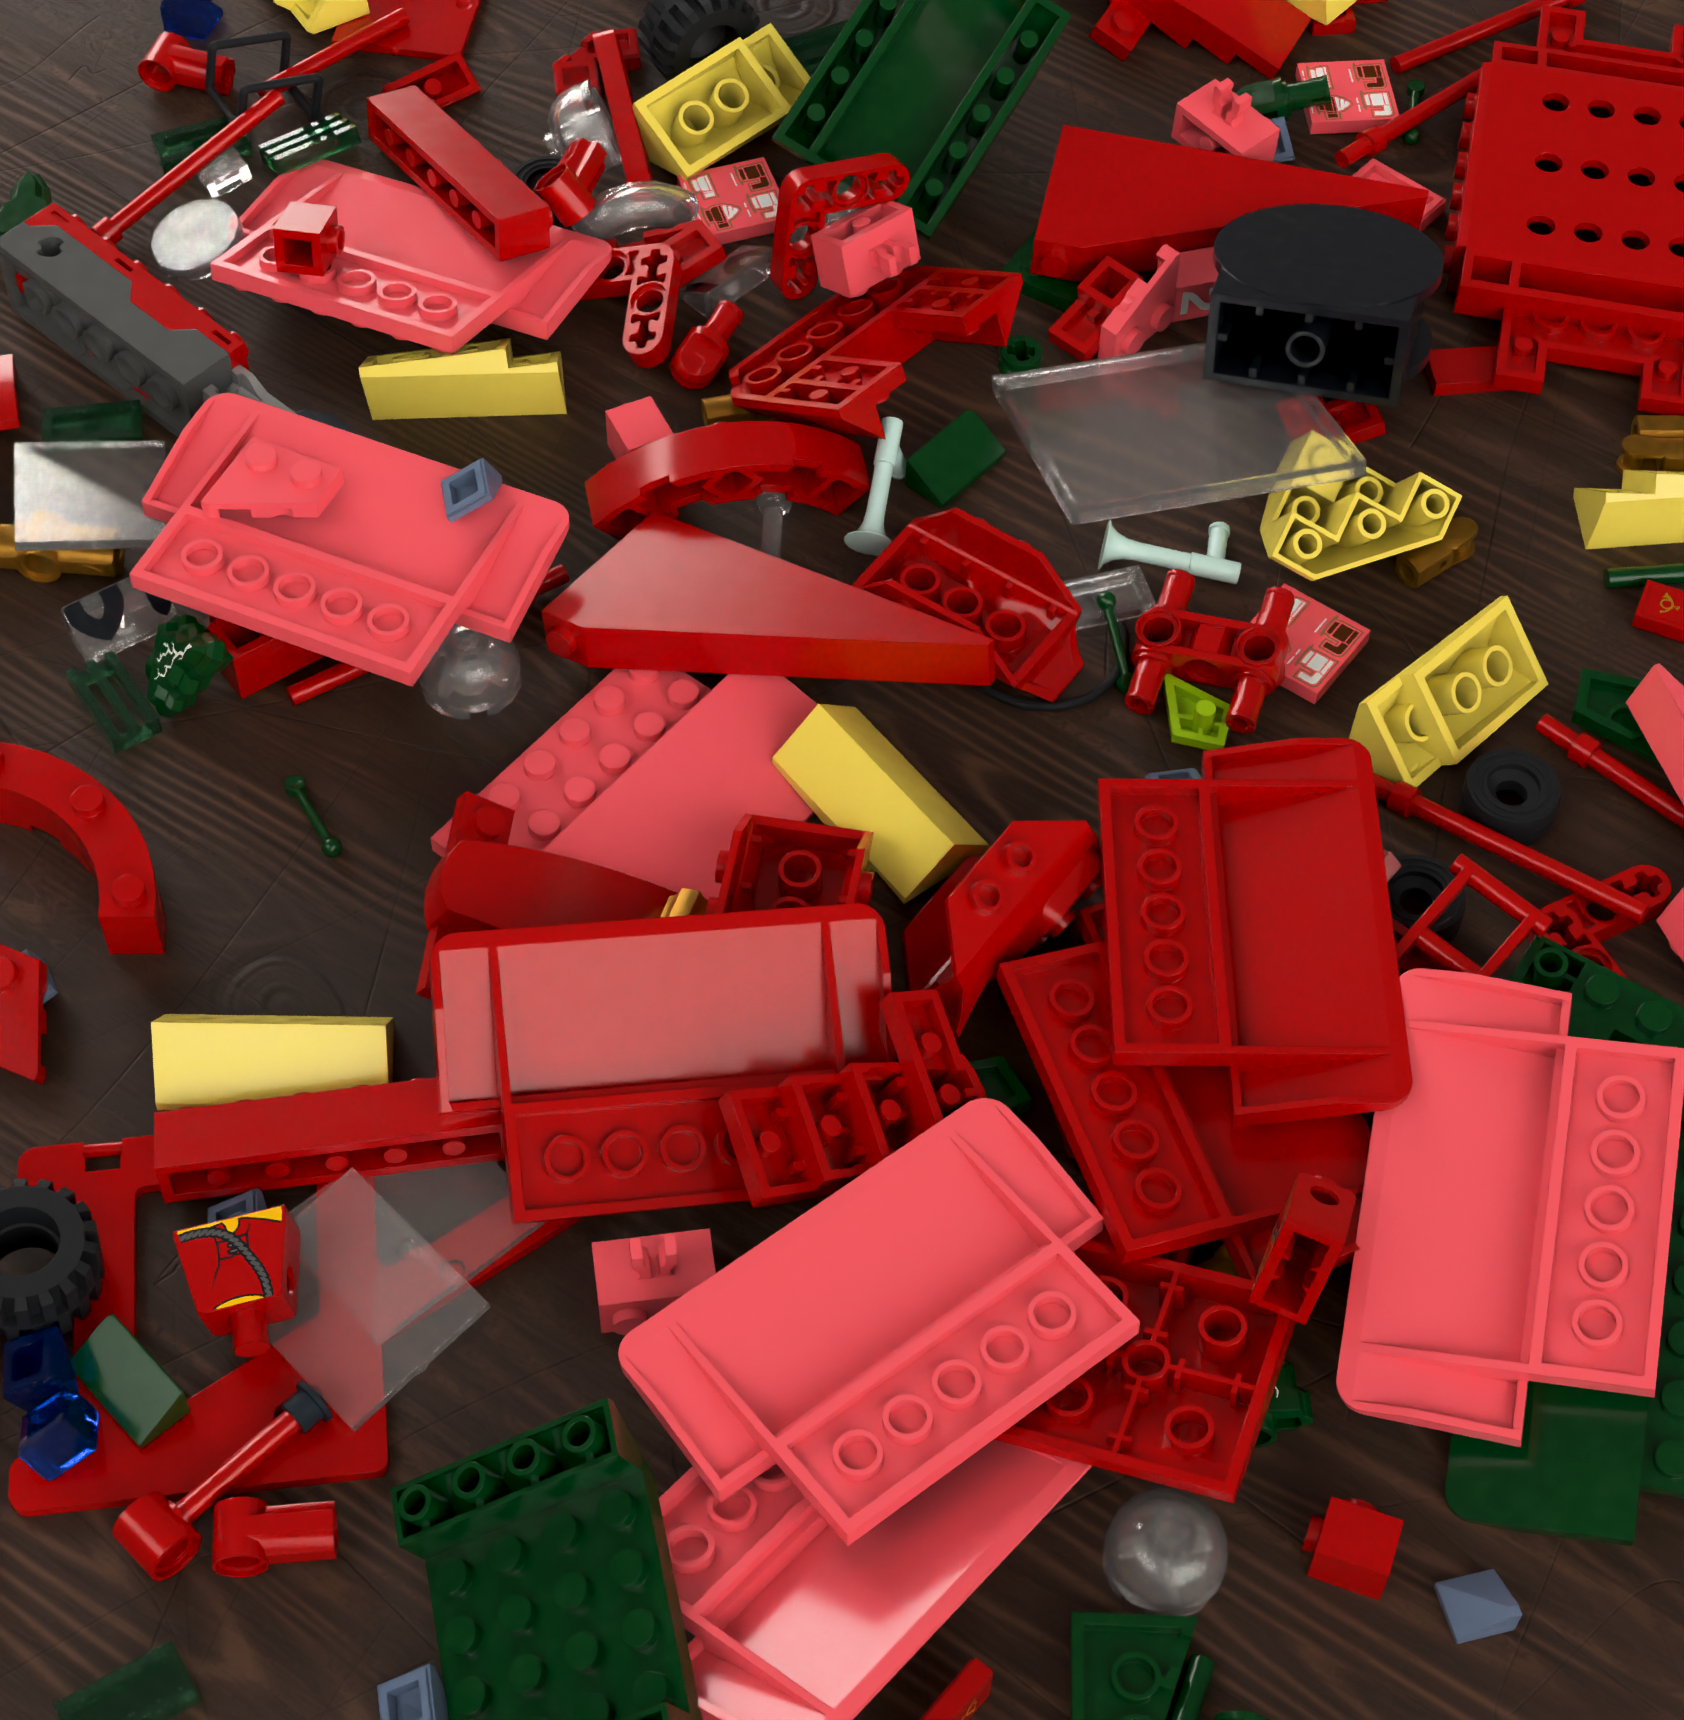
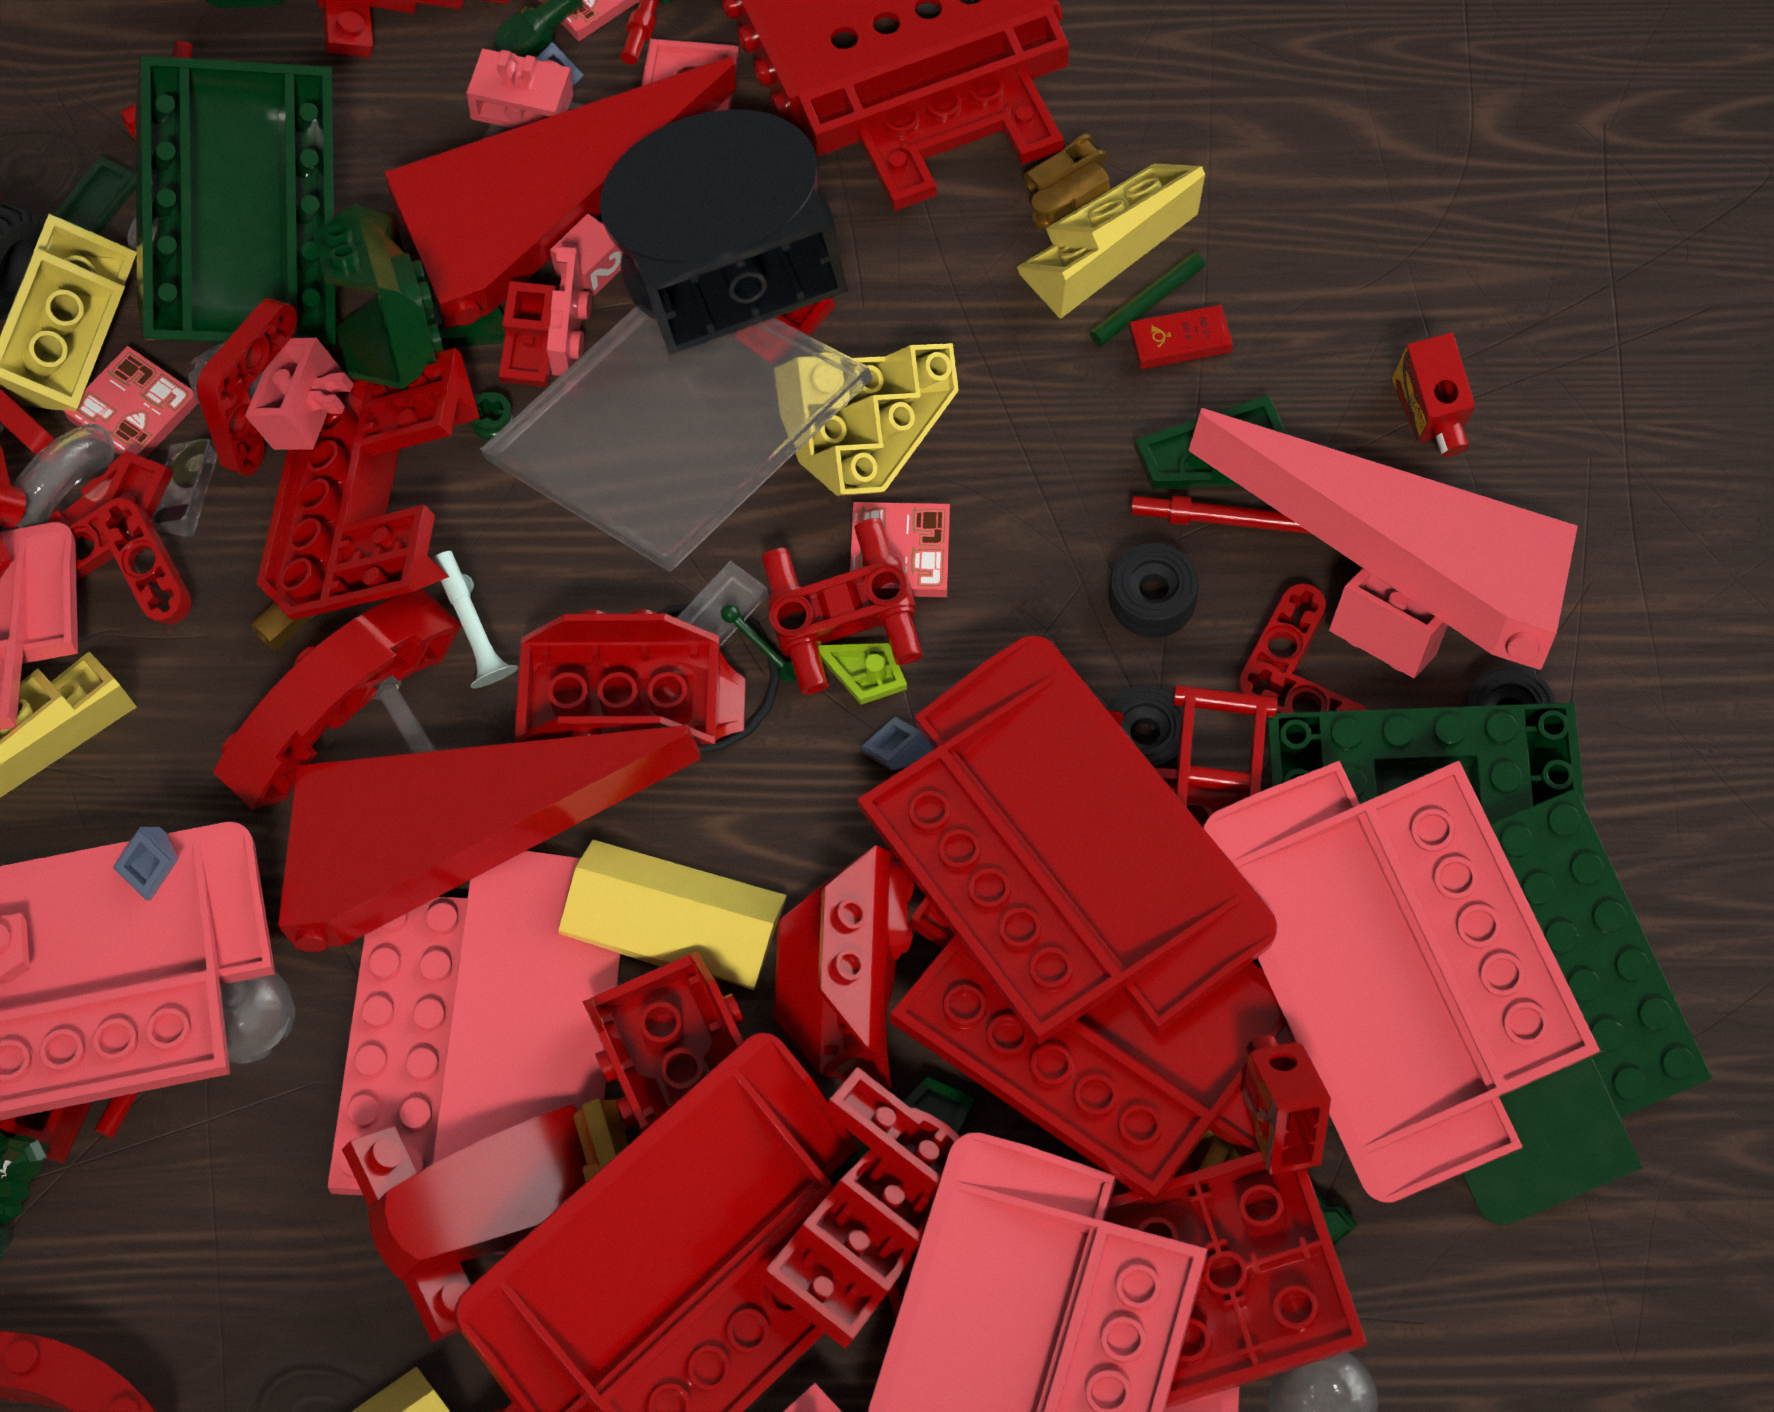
camera: 30 degrees left, 10 degrees up
(296, 788) = (172, 1214): dark green hinge -> none
(634, 426) = (223, 694): coral brick -> none
(706, 348) = (217, 573): red arm -> none
(953, 459) = (506, 551): dark green slope -> none
(1004, 194) = (395, 331): none -> dark green slope
(1208, 566) = (782, 522): light aqua piece -> none
(1352, 1546) = (1451, 1304): red brick -> none
(1407, 800) = (1076, 642): red bar -> none
(1428, 561) = (951, 419): pearl gold bar -> none
(1450, 697) = (1055, 534): light yellow slope -> none
(1462, 370) = (859, 206): red tile -> none
(1477, 1606) = (1561, 1287): sand blue slope -> none

